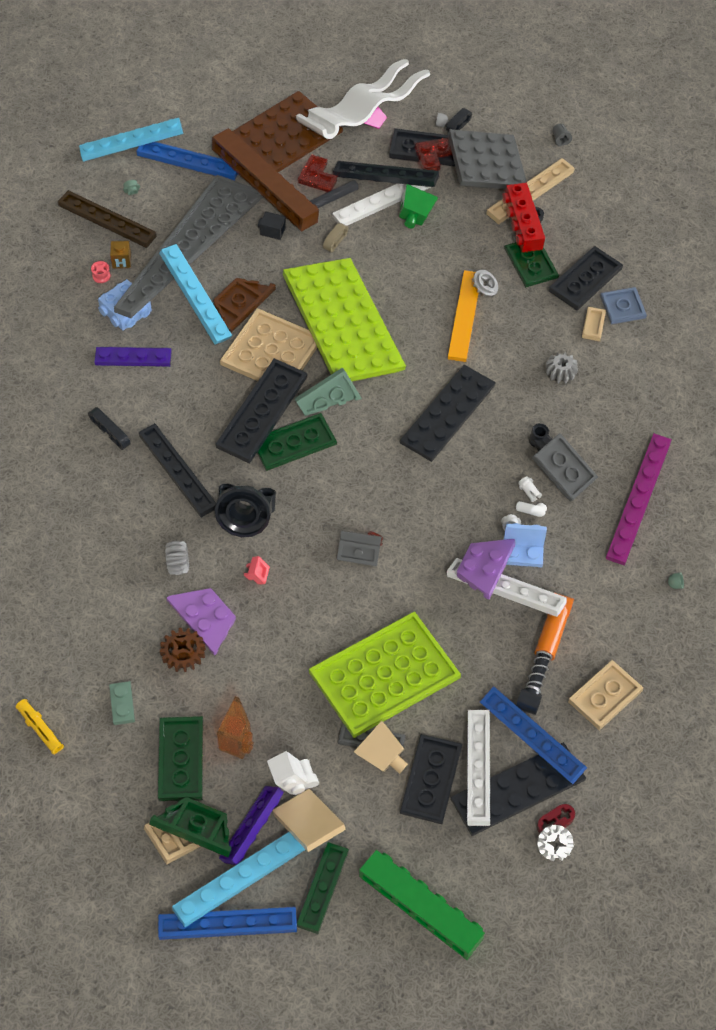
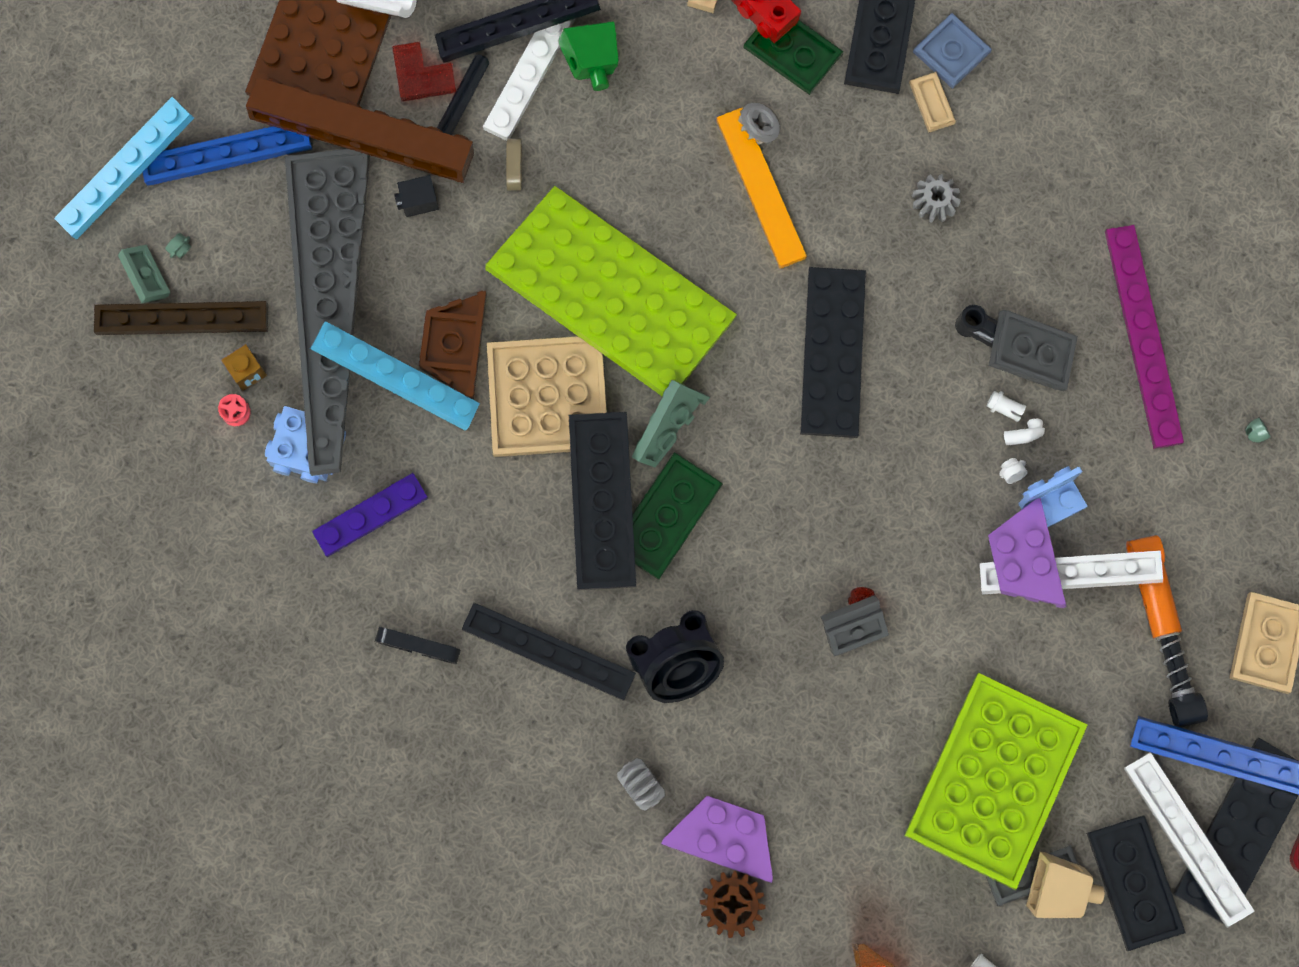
camera: 30 degrees left, 20 degrees up
(103, 189) = (143, 273): none -> sand green plate
(257, 571) = (749, 734): coral tile -> none

